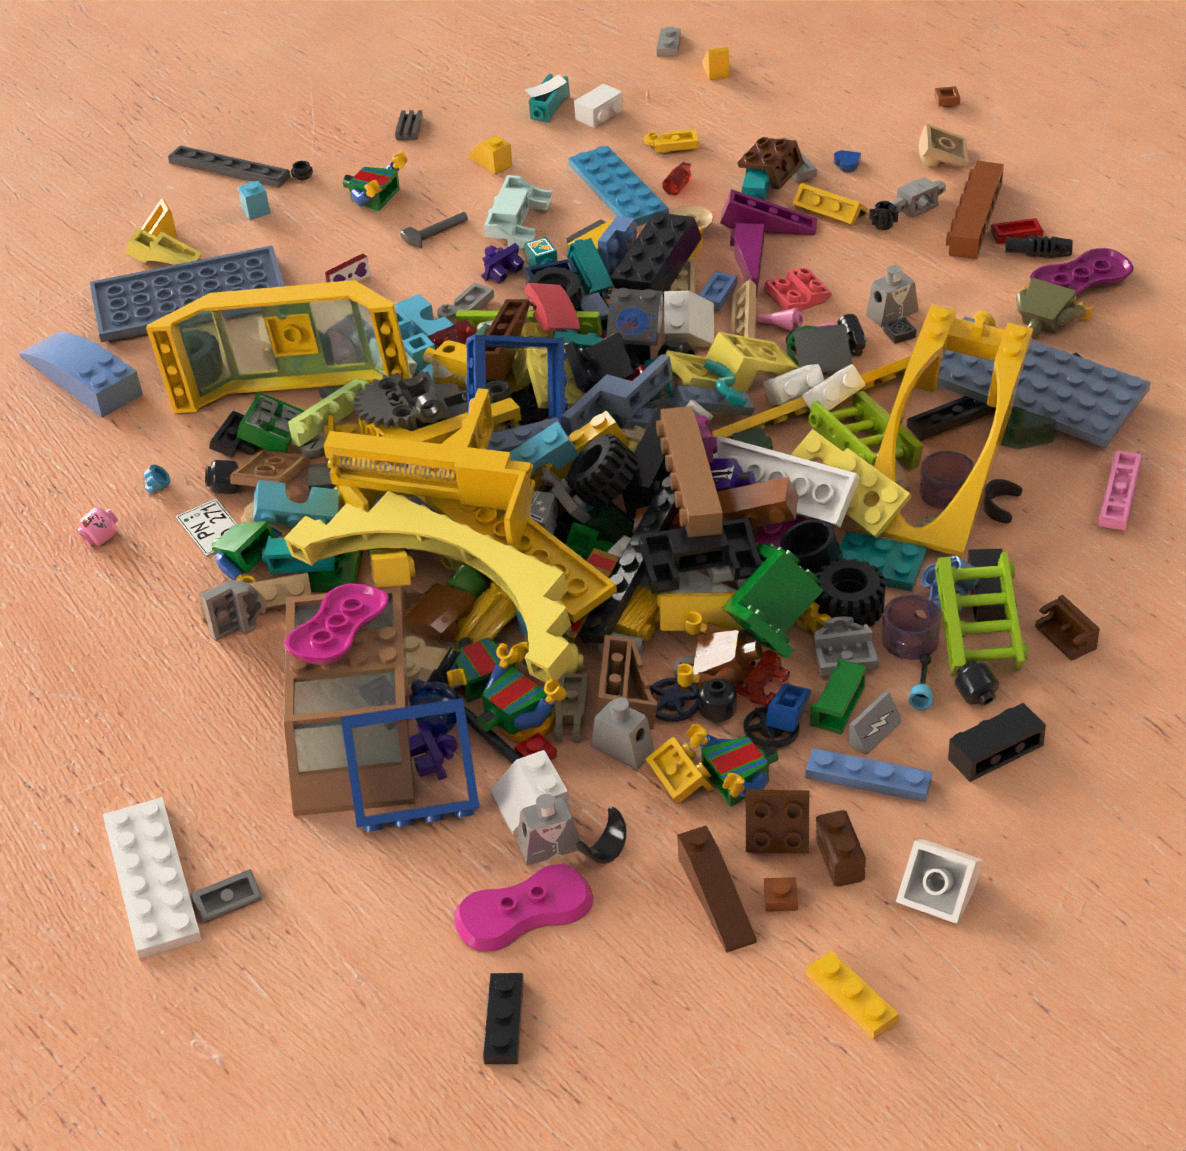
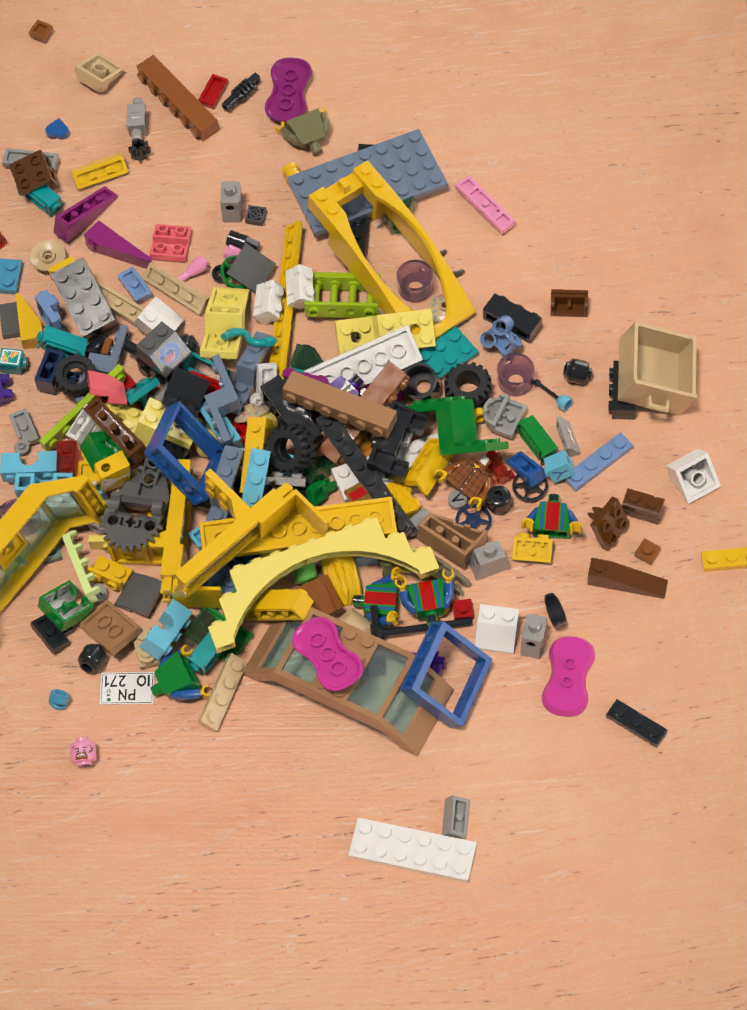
camera: 55 degrees left, 20 degrees up
(232, 608) = (234, 706): light grey slope -> none
(430, 693) = (404, 637): clear blue piece -> none
(818, 731) = (558, 466): none -> medium azure brick
(957, 629) = (524, 345): lime fence -> none
(1049, 743) = (657, 368): none -> tan container

